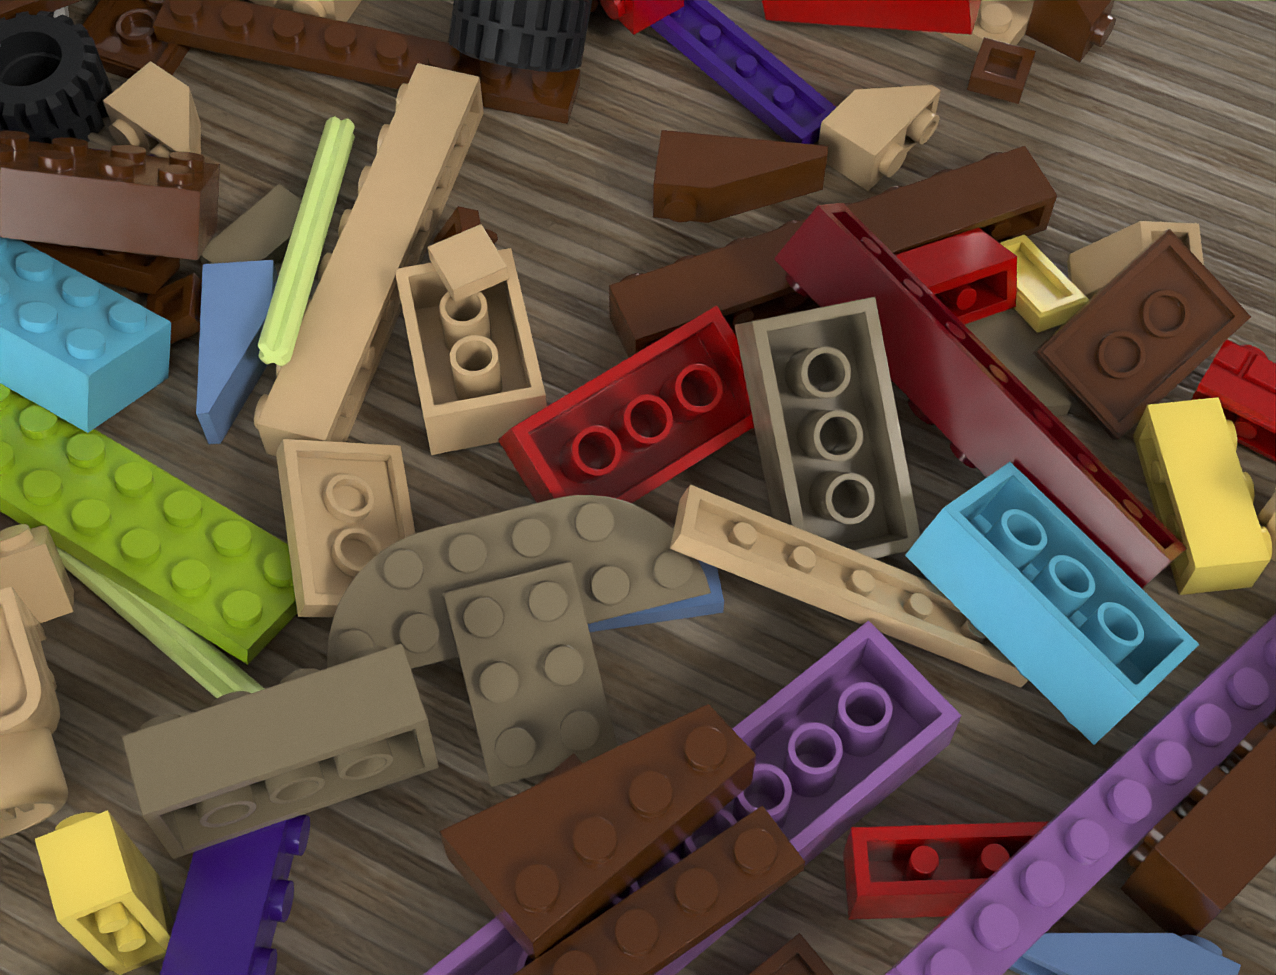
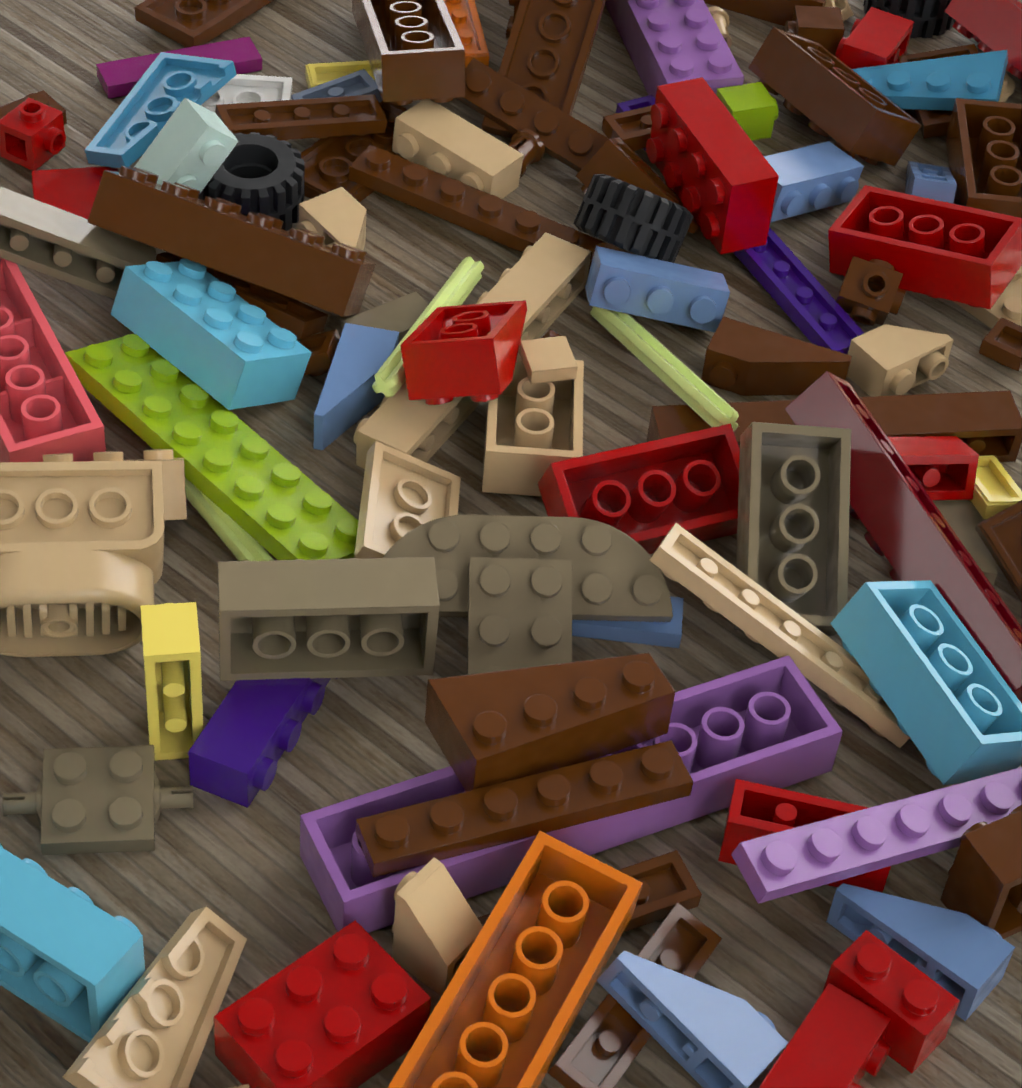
camera: 10 degrees right, 15 degrees down
(361, 279) = (464, 352): none -> red slope
(571, 110) = (656, 289): none -> medium blue brick
(610, 221) = (667, 367): none -> yellowish green axle
(807, 52) = (870, 291): none -> reddish brown brick

